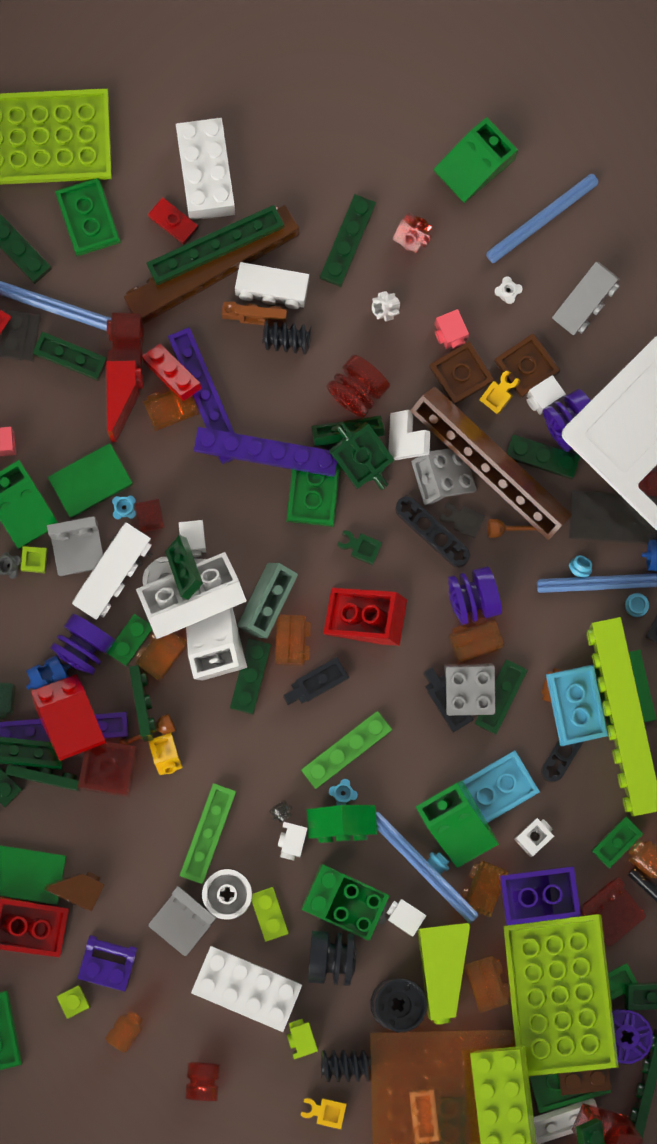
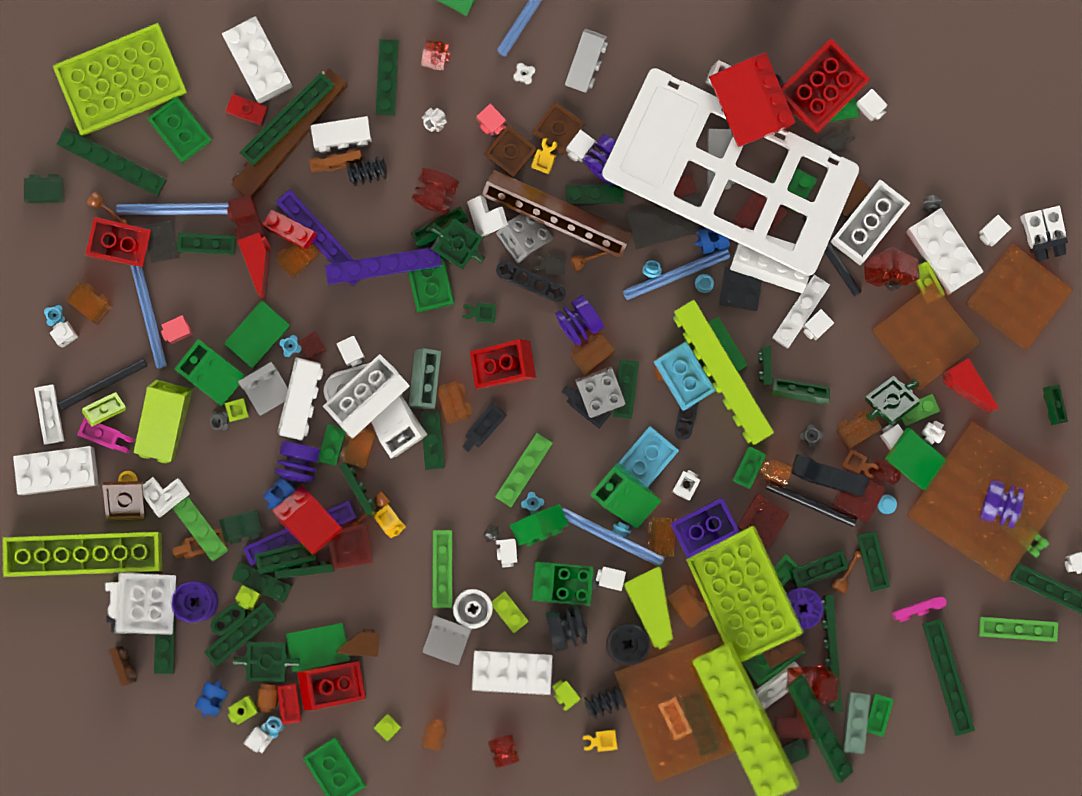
camera: 15 degrees left, 5 degrees up
(104, 971) = (405, 696): dark purple plate -> none
(183, 567) = (353, 377): dark green plate -> none

